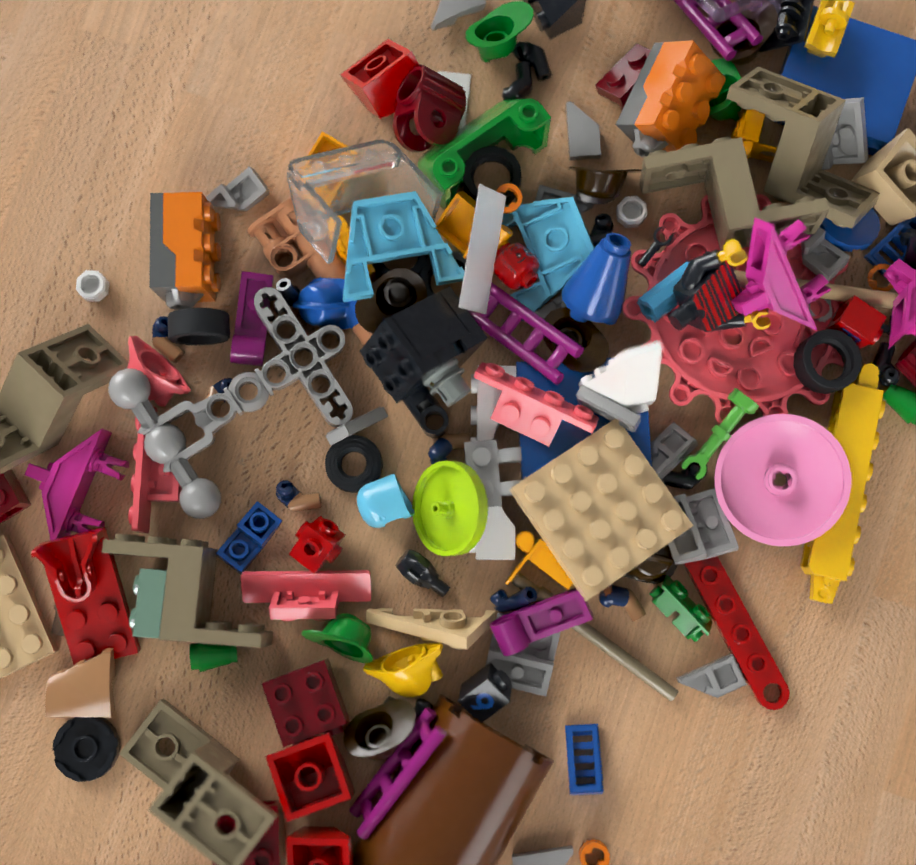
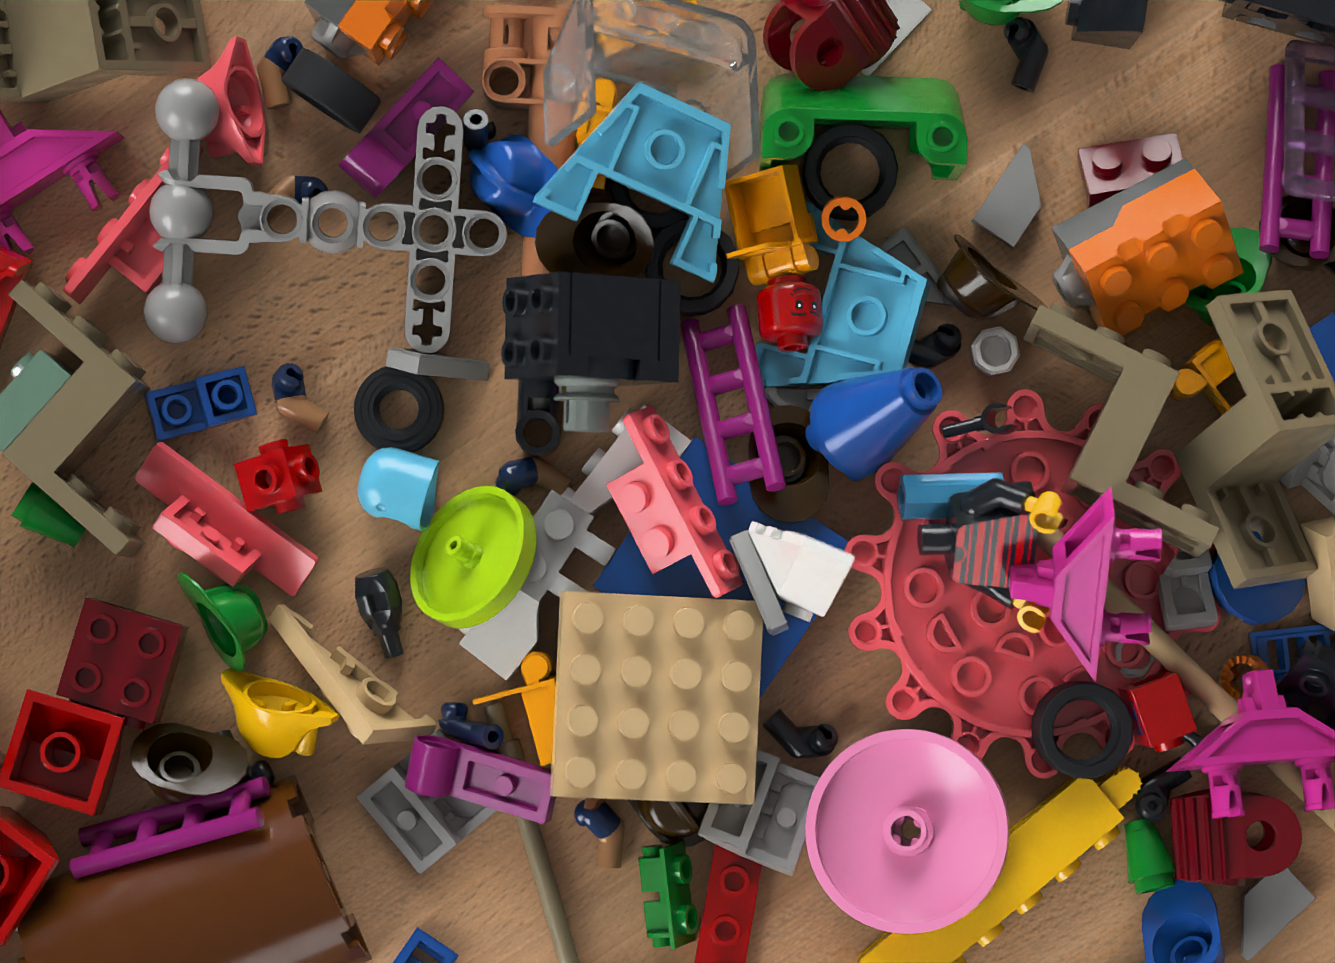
camera: 30 degrees right, 5 degrees up
(482, 250) = (755, 266): white sticker -> none
(485, 692) = (349, 813): black brick -> none
(522, 86) = (984, 78): black arm -> none
(671, 449) = (805, 690): light grey tile -> none
(721, 433) = (930, 703): bright green piece -> none

